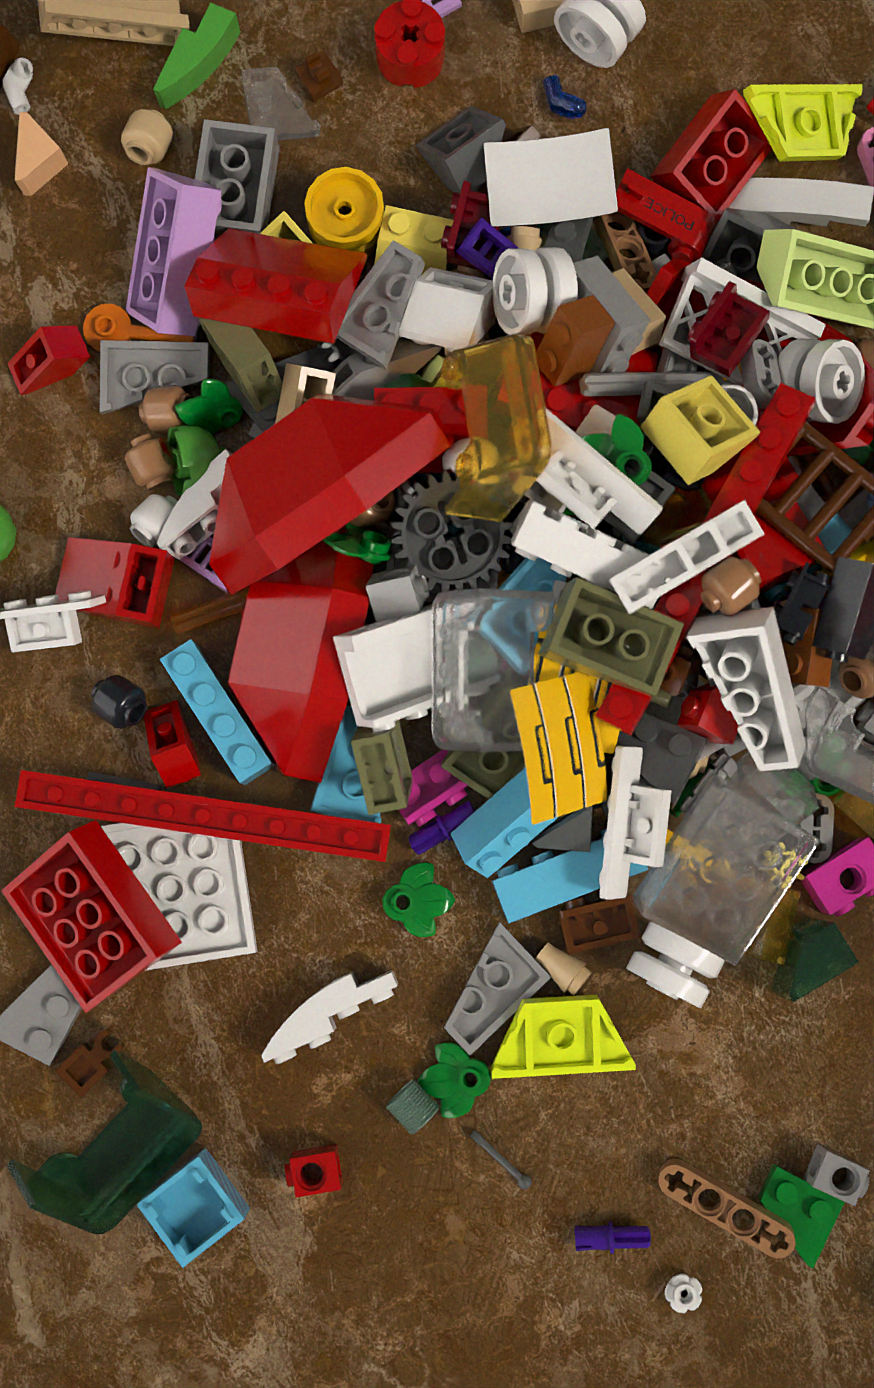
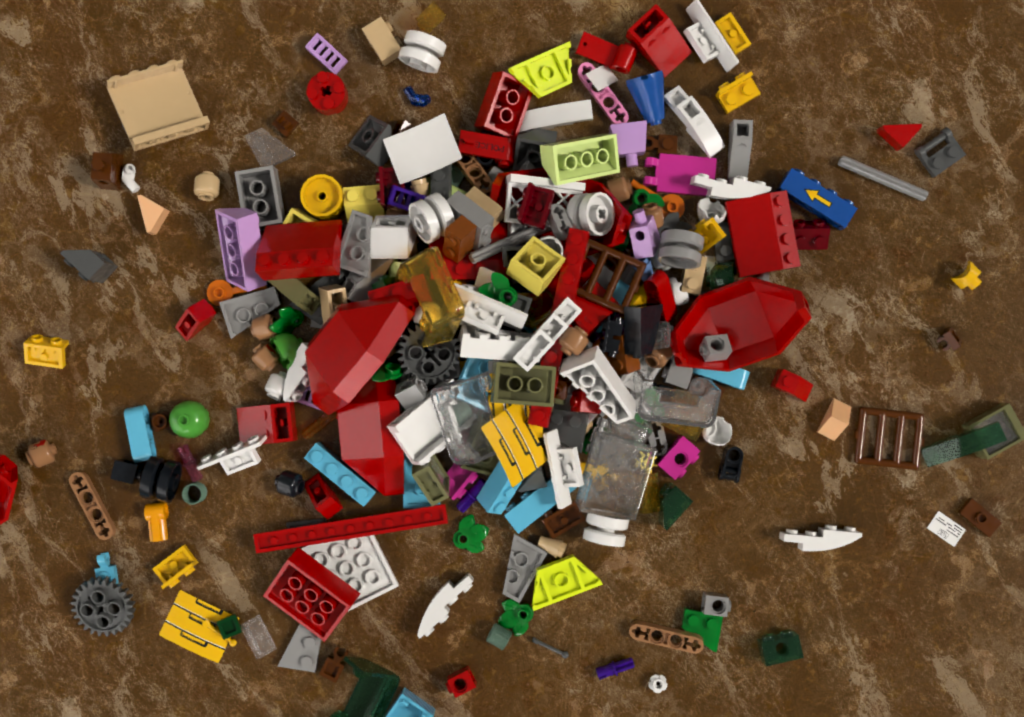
camera: 15 degrees left, 5 degrees up
(196, 55) = (218, 134): bright green slope -> none

